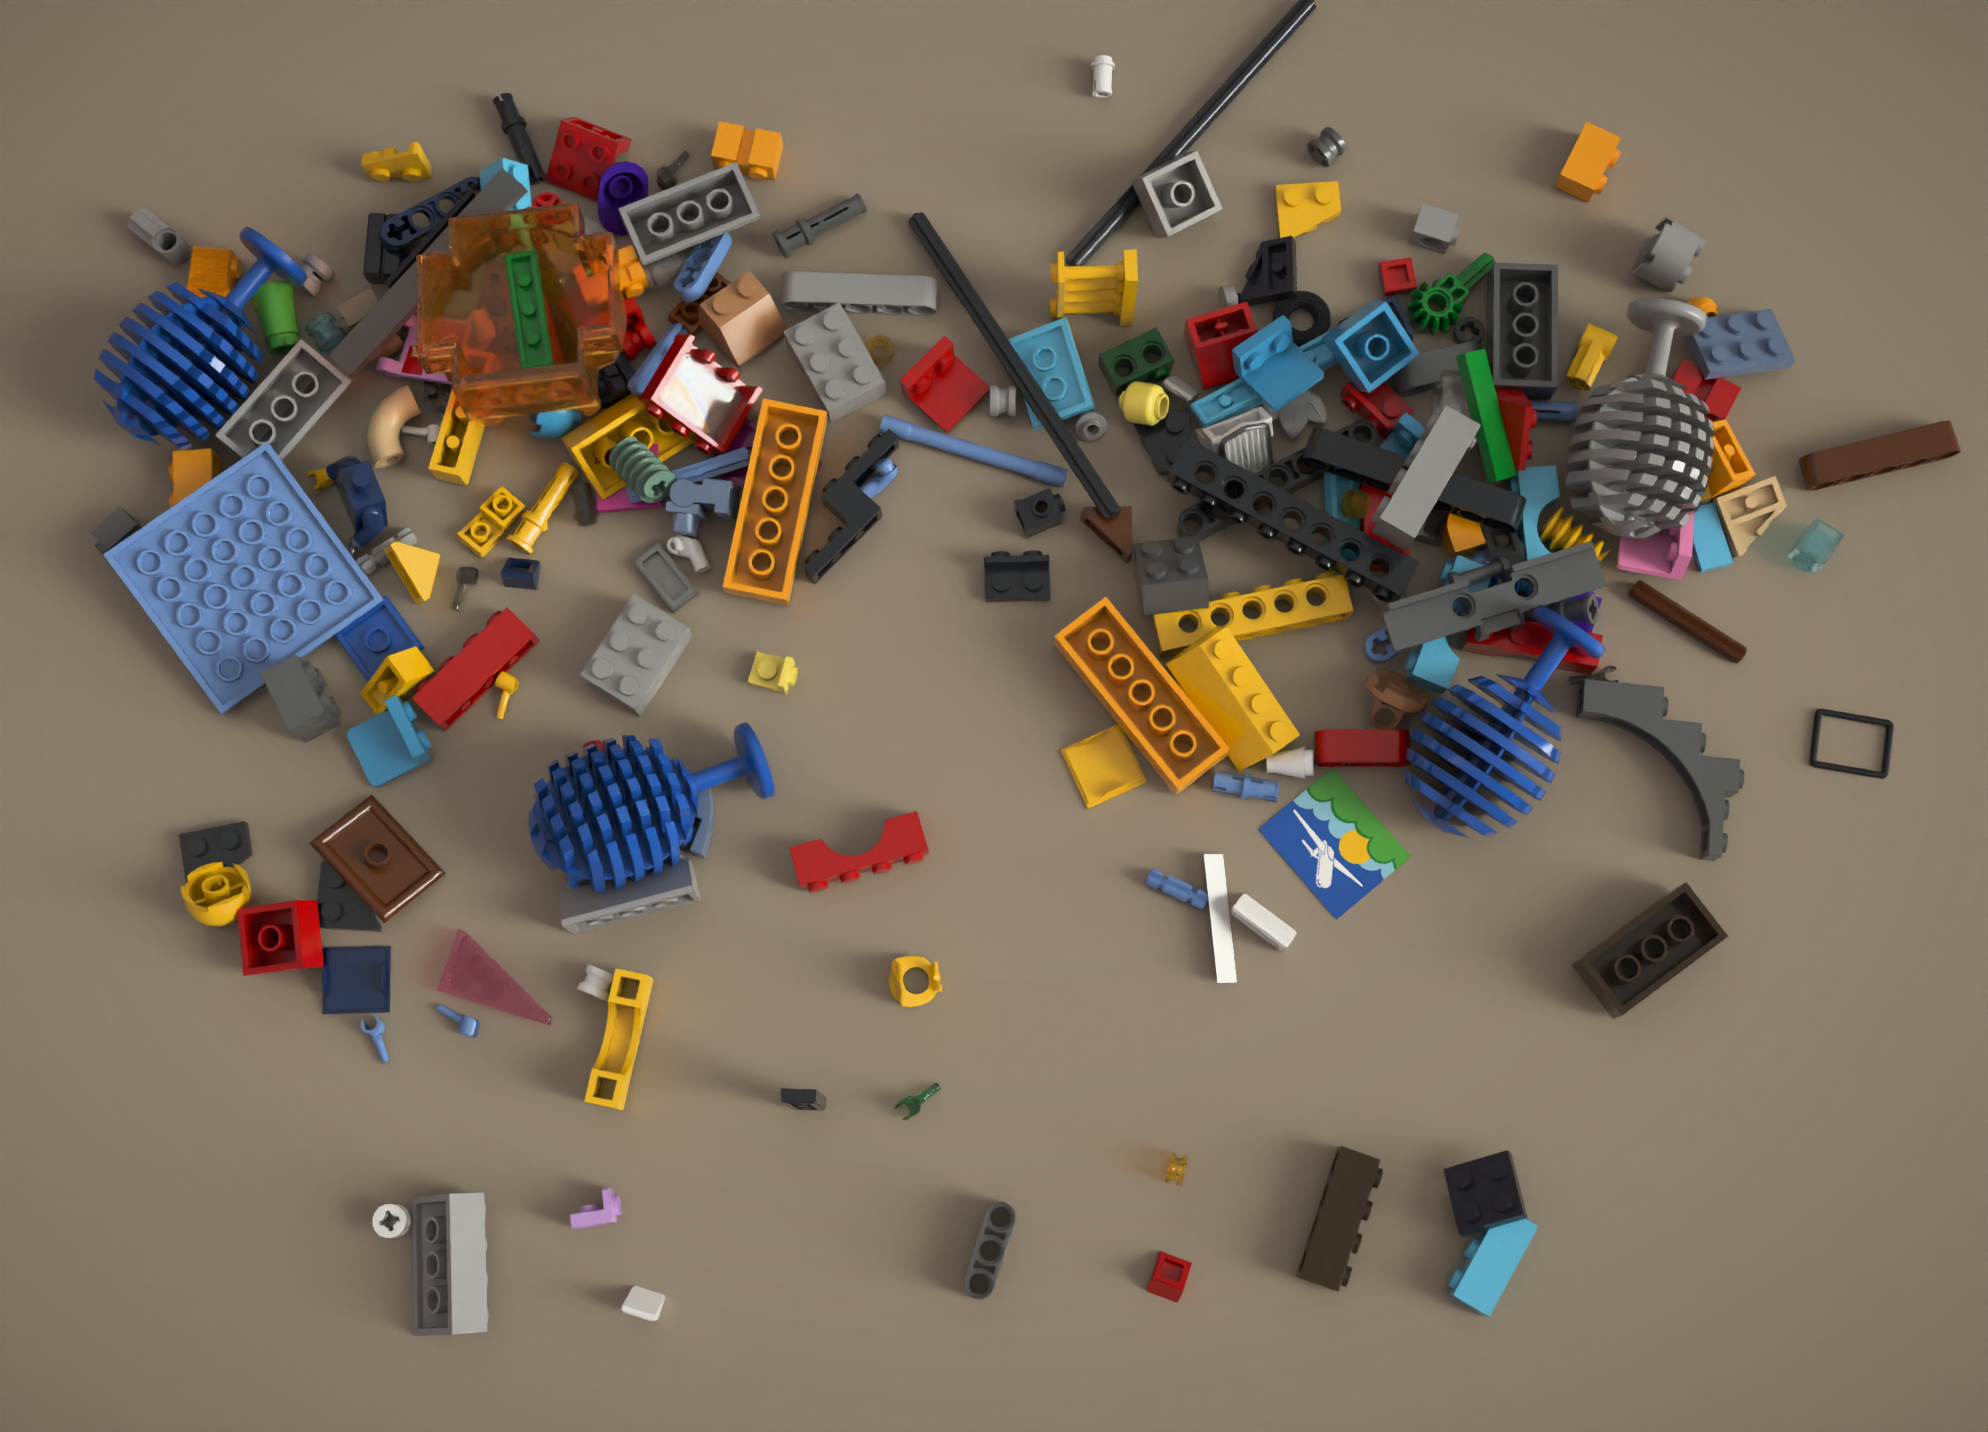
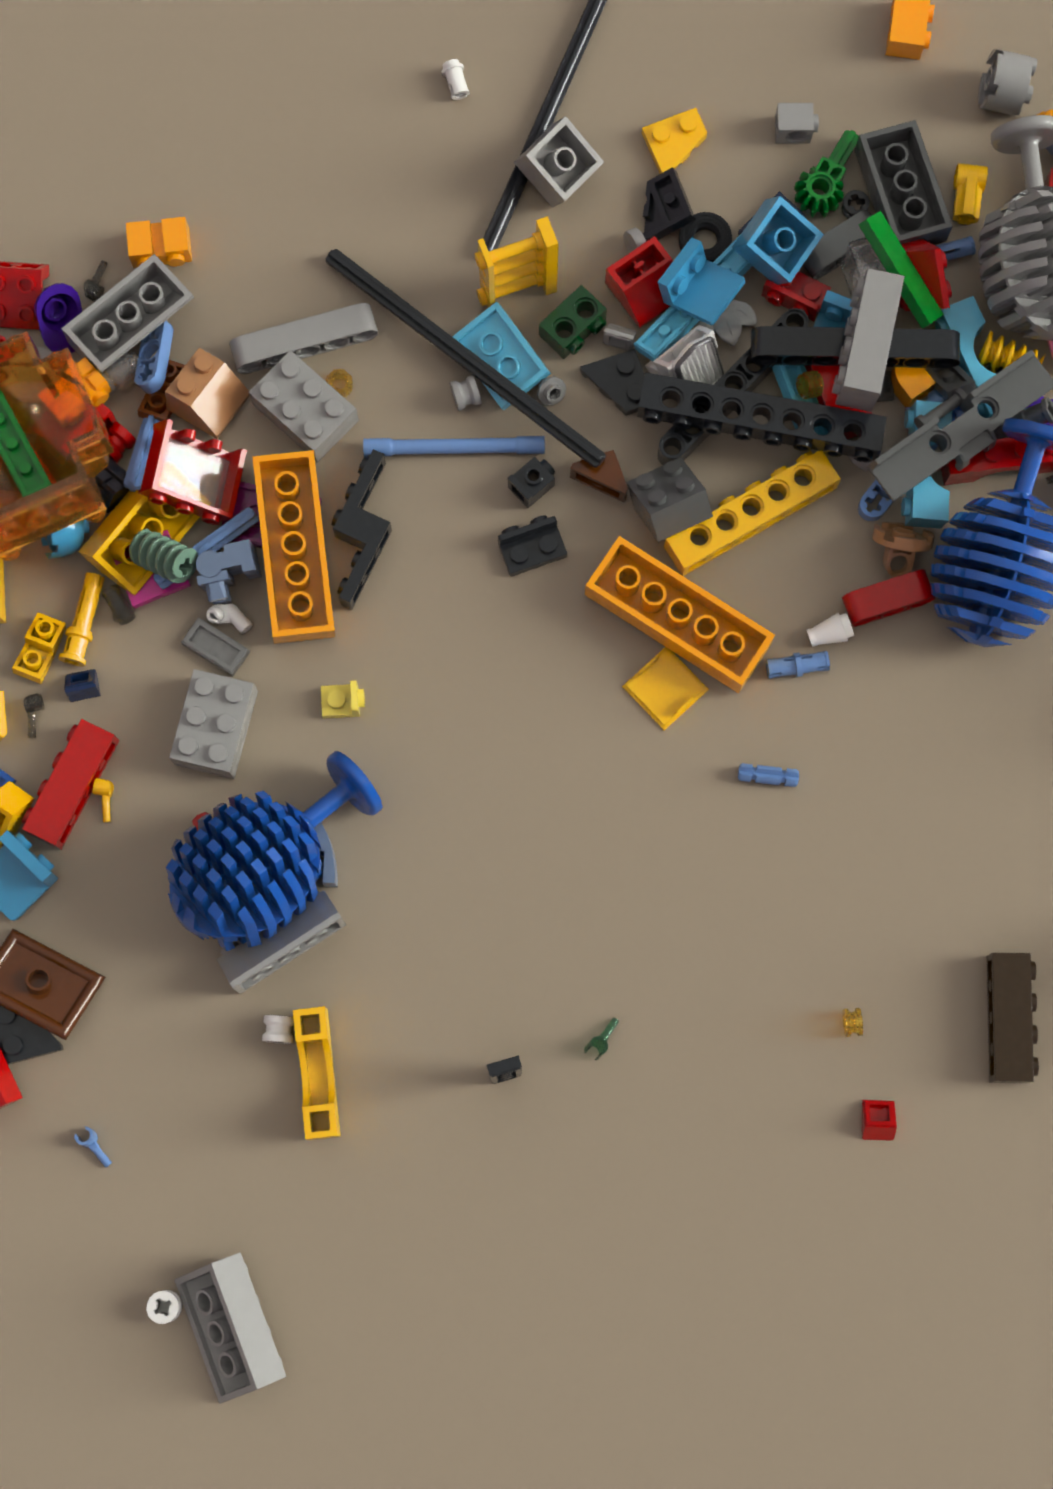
camera: 20 degrees left, 0 degrees up
(356, 979) = (56, 1100): dark blue piece -> none
(468, 1025) = (173, 1107): medium blue hand -> none
(480, 979) = (170, 1062): clear pink wing -> none
(592, 1215) = (345, 1240): lavender bracket -> none
(643, 1303) = (419, 1303): white slope -> none
(806, 230) = (236, 297): dark grey pin -> none
(819, 865) = (443, 857): red arch -> none
(886, 474) = (383, 492): medium blue arm -> none
(896, 985) = (550, 943): yellow piece -> none
(943, 386) = (408, 397): red bracket -> none
(977, 1262) = (721, 1135): dark grey beam -> none
(1144, 403) = (593, 355): light yellow head -> none
(1220, 918) = (815, 788): white sticker -> none
(1232, 697) = (761, 588): yellow slope -> none
(1263, 922) = (854, 780): white slope -> none
(1326, 147) = (676, 80): dark grey wheel -> none
(1334, 843) = (891, 690): sticker -> none
(1397, 276) = (776, 175): red plate -> none

